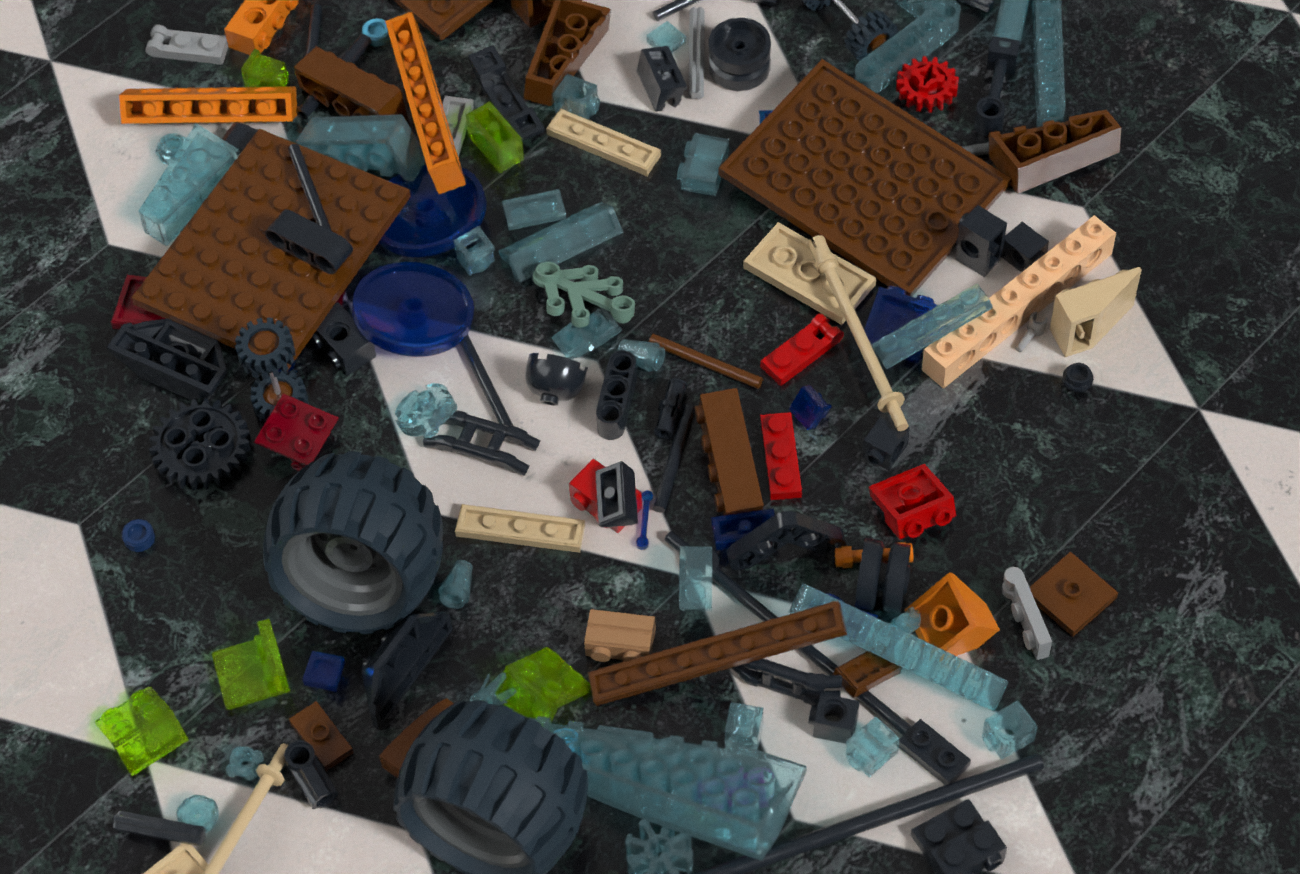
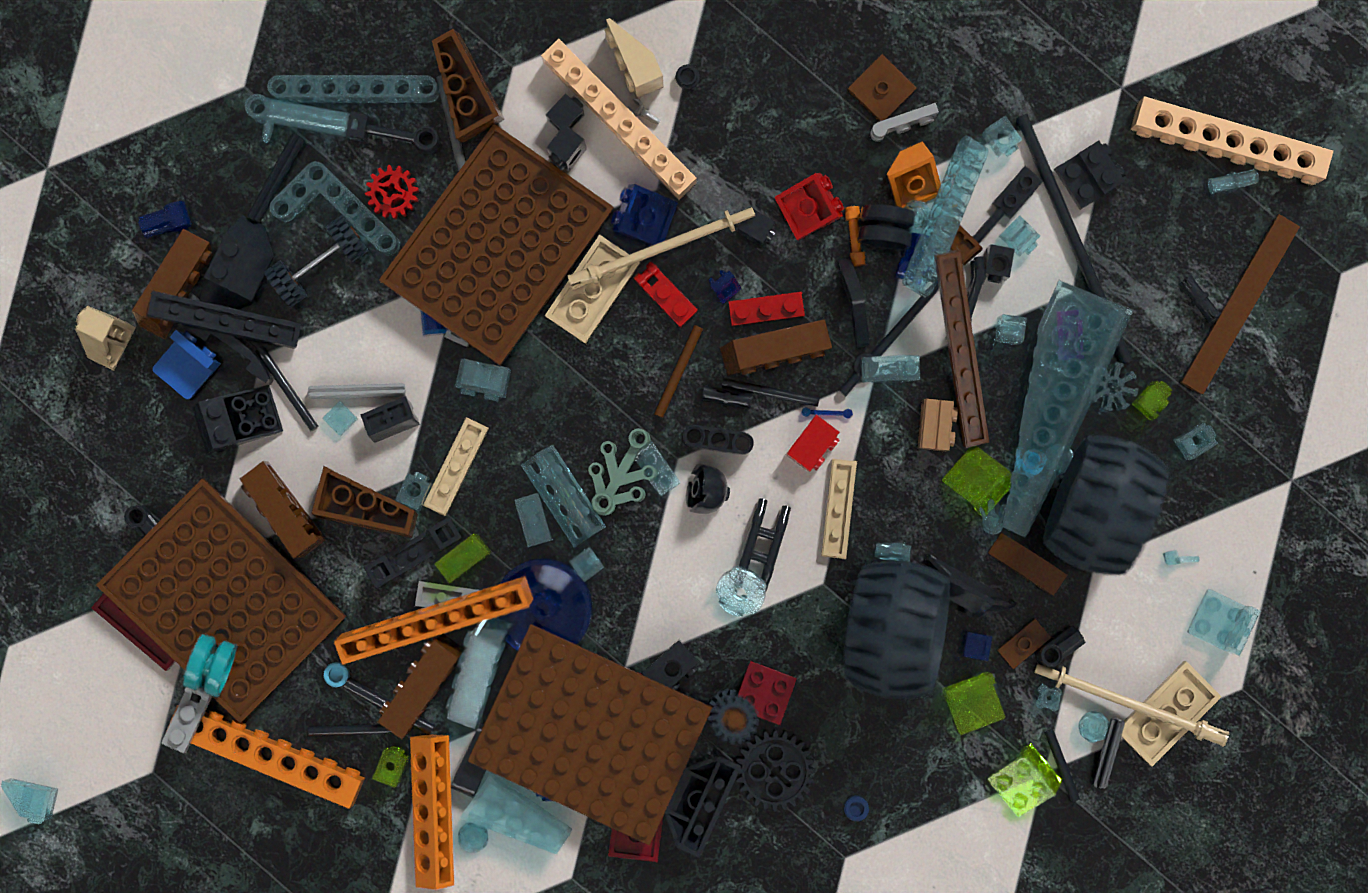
camera: 95 degrees left, 30 degrees up
(152, 777) = (1062, 765): none -> black bar
(187, 45) = (356, 841): light grey plate -> none
(308, 186) = (541, 707): black bar -> none
(308, 241) = (599, 701): black beam -> none
(412, 309) = (644, 610): clear blue dish -> none
(485, 382) = (703, 547): black bar -> none
(616, 495) = (824, 432): black slope -> none
(647, 354) = (676, 422): clear light blue cone -> none
(733, 527) = (840, 334): clear blue brick -> none
(739, 54) = (381, 355): black wheel -> none
(932, 326) = (658, 187): clear light blue plate -> none

